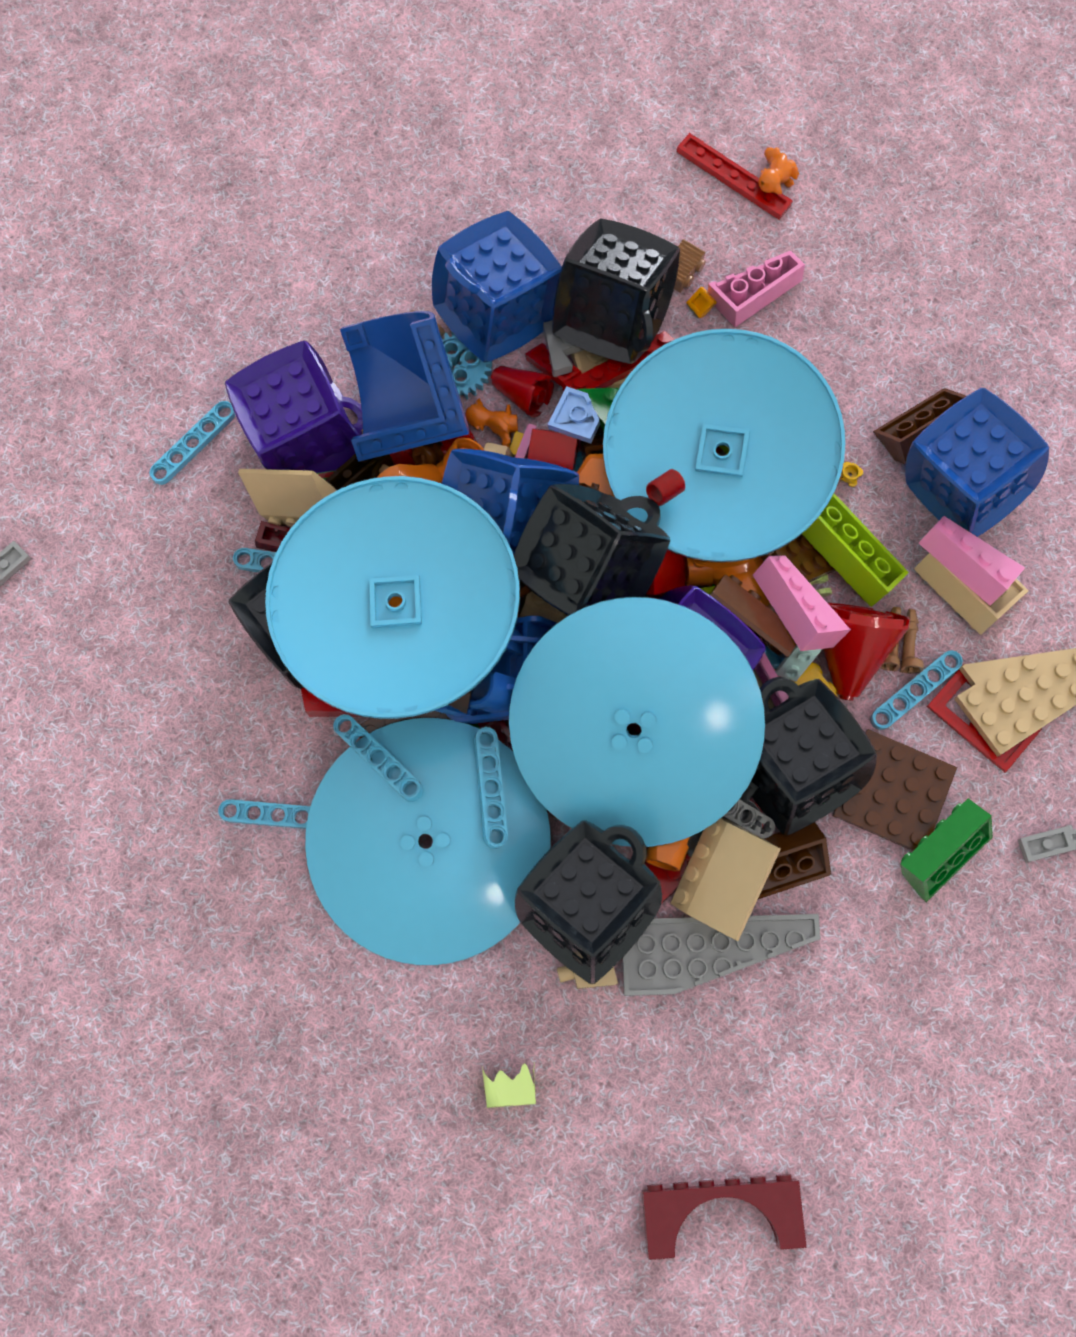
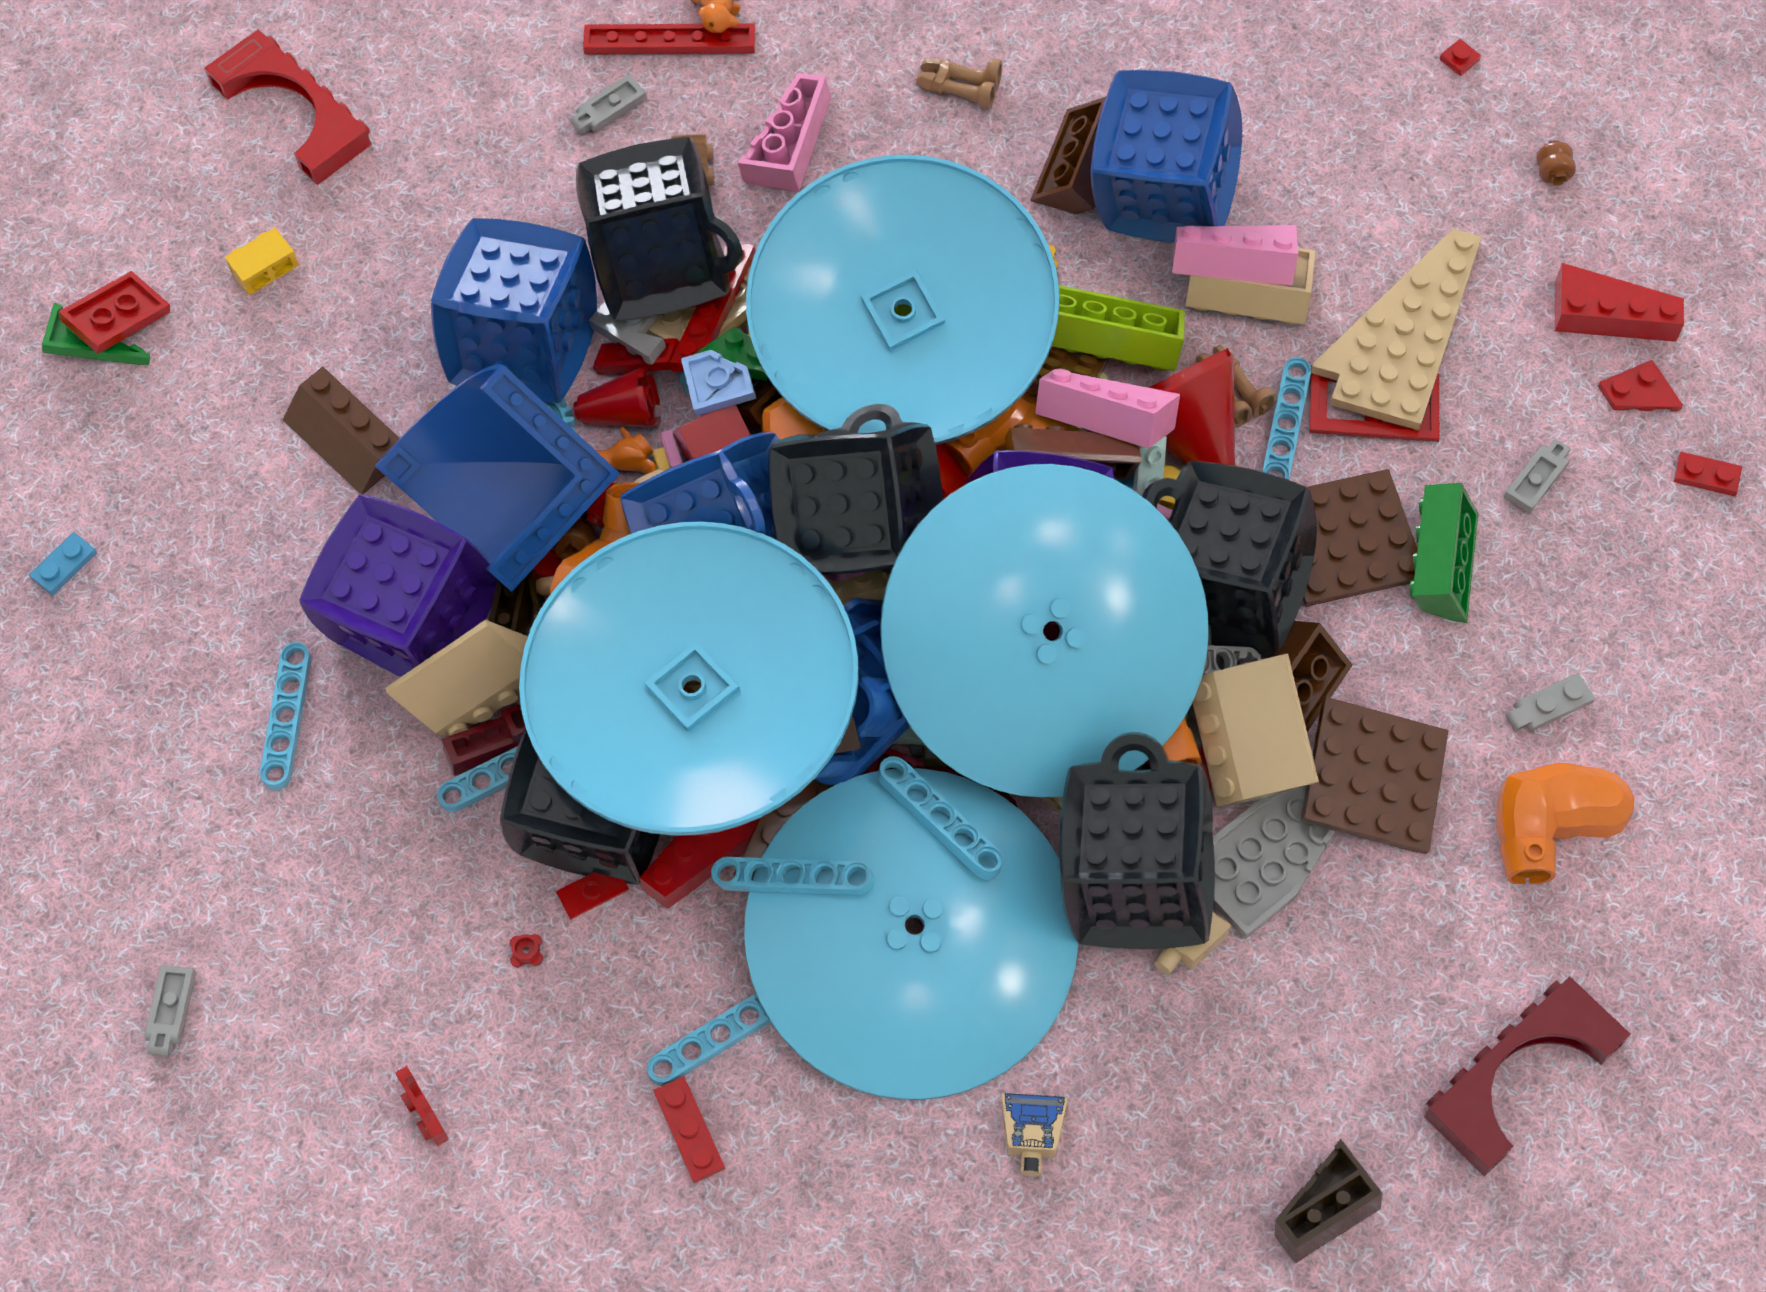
camera: 35 degrees left, 10 degrees down
(82, 730) = (415, 1100): none -> red wing
(145, 264) = (63, 563): none -> dark azure plate
(210, 675) = (519, 943): none -> red plate
(216, 857) = (689, 1129): none -> red plate
(254, 133) = (63, 341): none -> green wing
(267, 673) = (590, 893): none -> red plate
(284, 131) = (114, 312): none -> red plate
(352, 287) = (340, 429): none -> reddish brown slope
(389, 155) = (261, 261): none -> yellow hinge
(403, 1013) = (1032, 1128): none -> torso
(489, 105) = (261, 63): none -> red arch
(510, 1092) = (1208, 1117): yellowish green piece -> none
(535, 1200) = (1328, 1205): none -> dark brown wedge
(664, 194) = (608, 105): none -> light grey hinge
(666, 487) = (879, 381): red piece -> none
(701, 302) = (742, 189): light orange tile -> none
(784, 958) = (1375, 775): none -> reddish brown plate
(884, 1064) = (1556, 804): none -> orange piece
(909, 334) = (937, 77): none -> medium nougat piece
(936, 995) = (1550, 703): none -> light grey hinge

